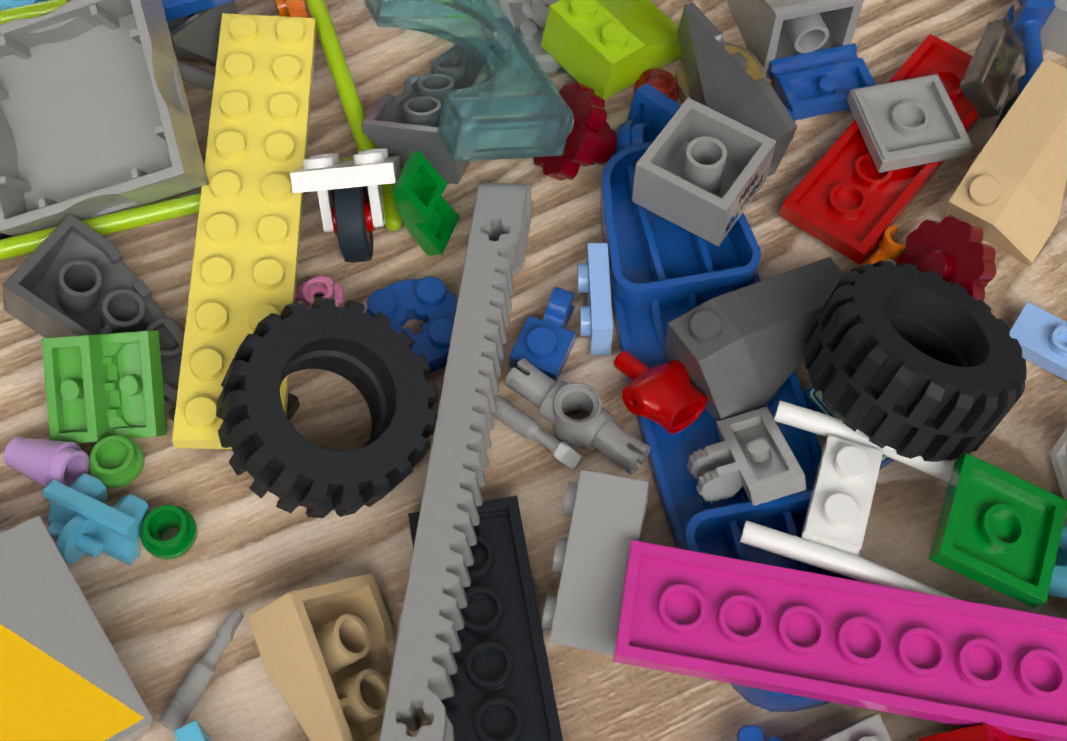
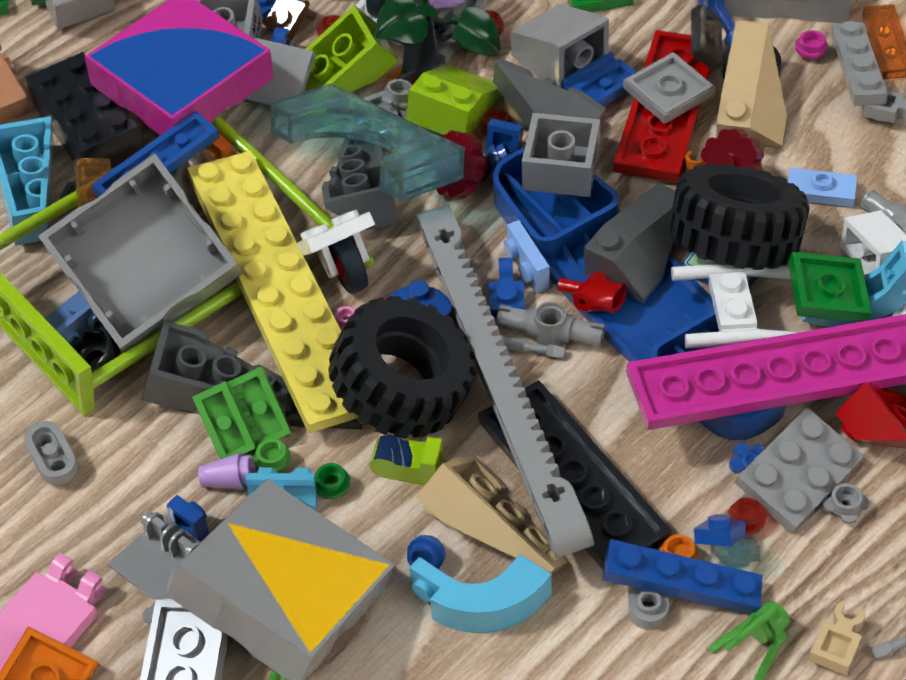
camera: 20 degrees left, 10 degrees down
(199, 676) = (398, 549): light grey piece -> none
(226, 705) = (427, 548): none -> blue plate
(282, 544) = (406, 459): none -> lime leg
(422, 206) = (388, 238): green slope -> none
(592, 561) = (607, 392): light grey wedge -> none
(748, 456) = (667, 304): light grey hinge -> none

